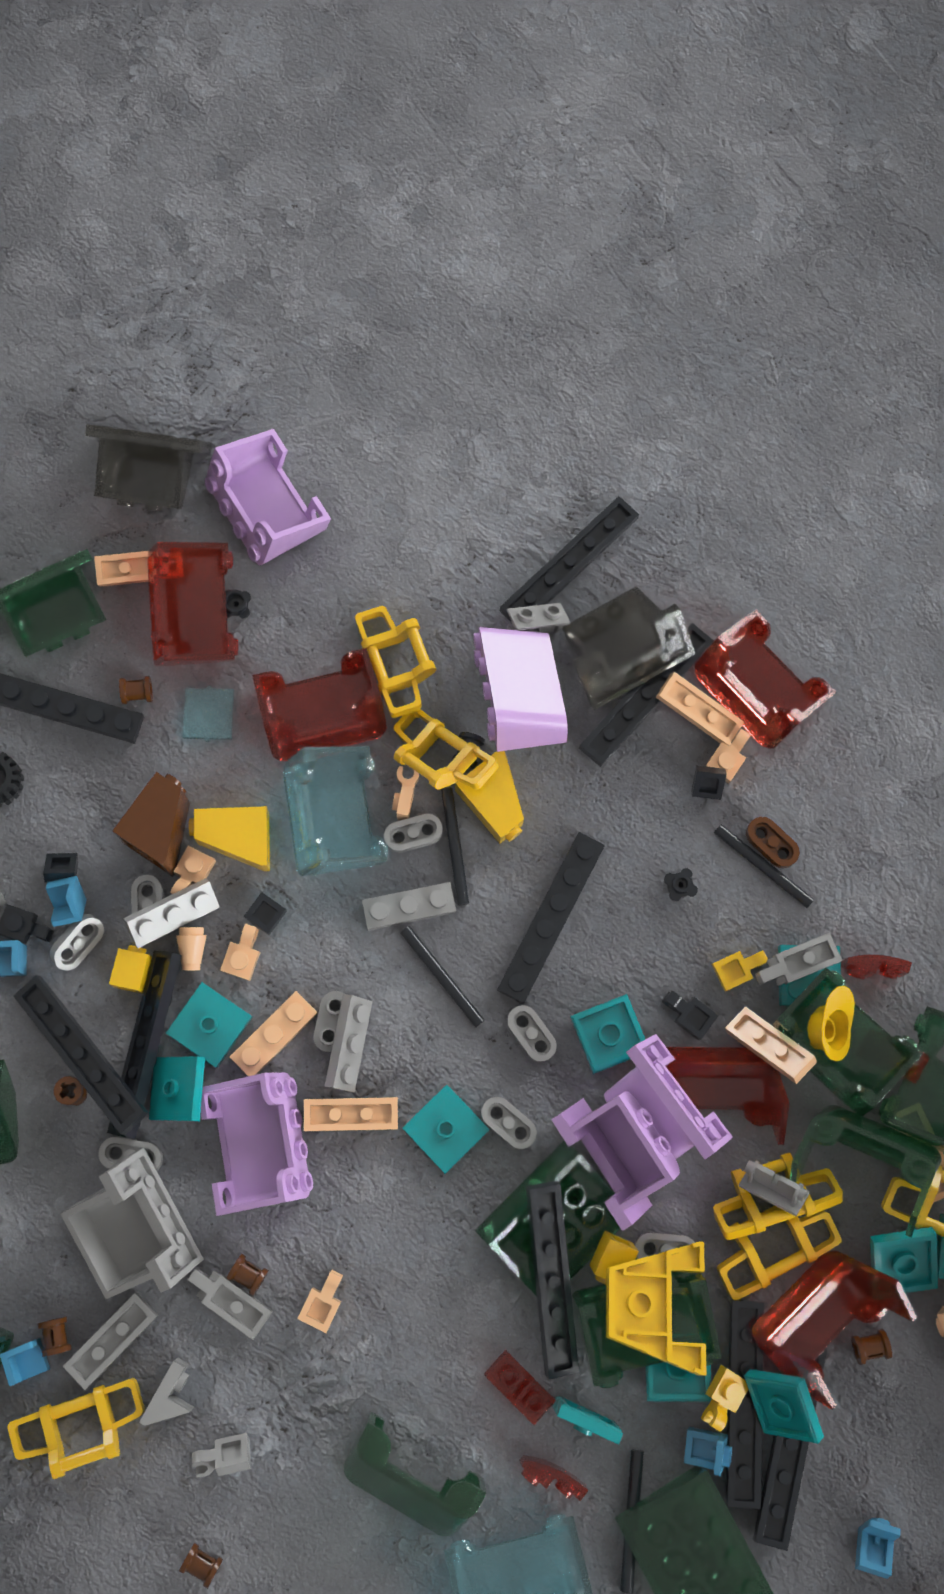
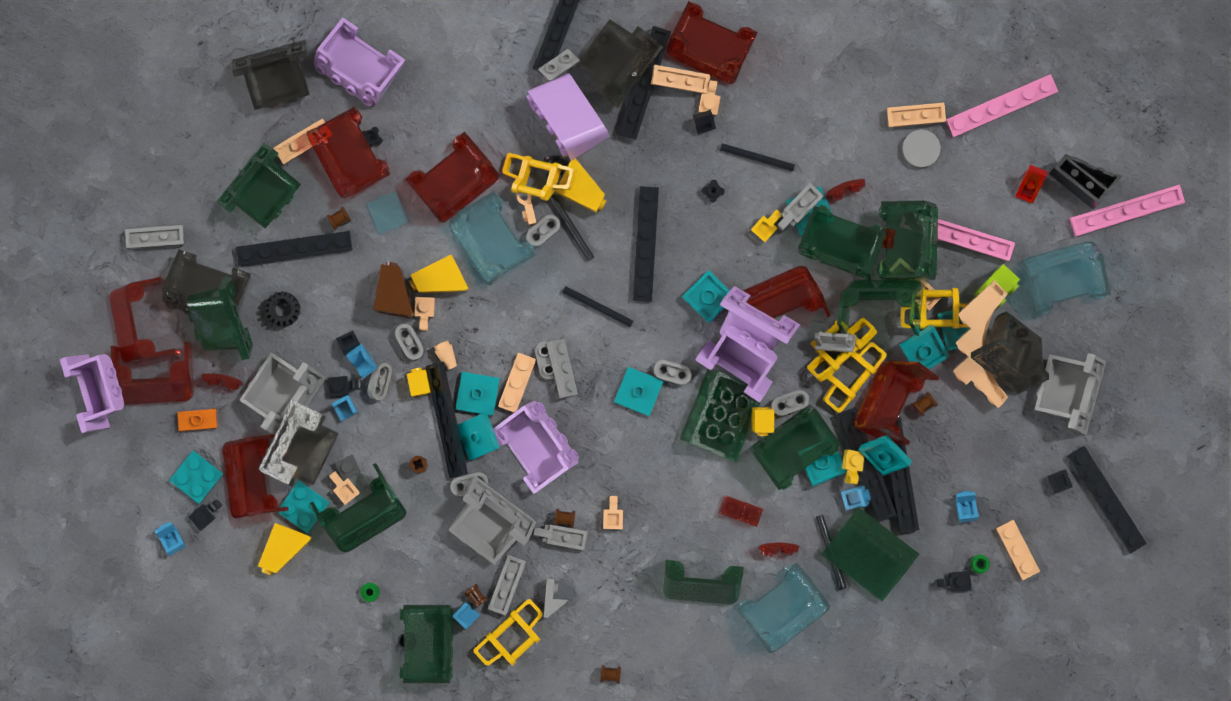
camera: 15 degrees left, 10 degrees up
(81, 1055) = (414, 441): black plate -> none
(171, 913) = (426, 340): plate -> none
(228, 1456) = (598, 615): light grey plate -> none
(241, 958) = (477, 348): light nougat plate -> none
(265, 913) = (479, 316): black plate -> none
(351, 1114) = (581, 407): light nougat plate -> none
(394, 636) = (477, 114): yellow bar -> none
(409, 906) = (560, 274): light grey plate -> none
(532, 1033) = (663, 316): light grey plate -> none
(552, 1279) = (733, 445): black plate -> none
(586, 1420) = (783, 510): teal plate -> none
(642, 1306) = (786, 436): yellow wing -> none
(693, 1015) = (752, 264): black plate -> none
(771, 1045) = (801, 262): light nougat plate -> none
(773, 841) = (757, 140): reddish brown plate -> none
(831, 1024) = (831, 236): yellow piece -> none

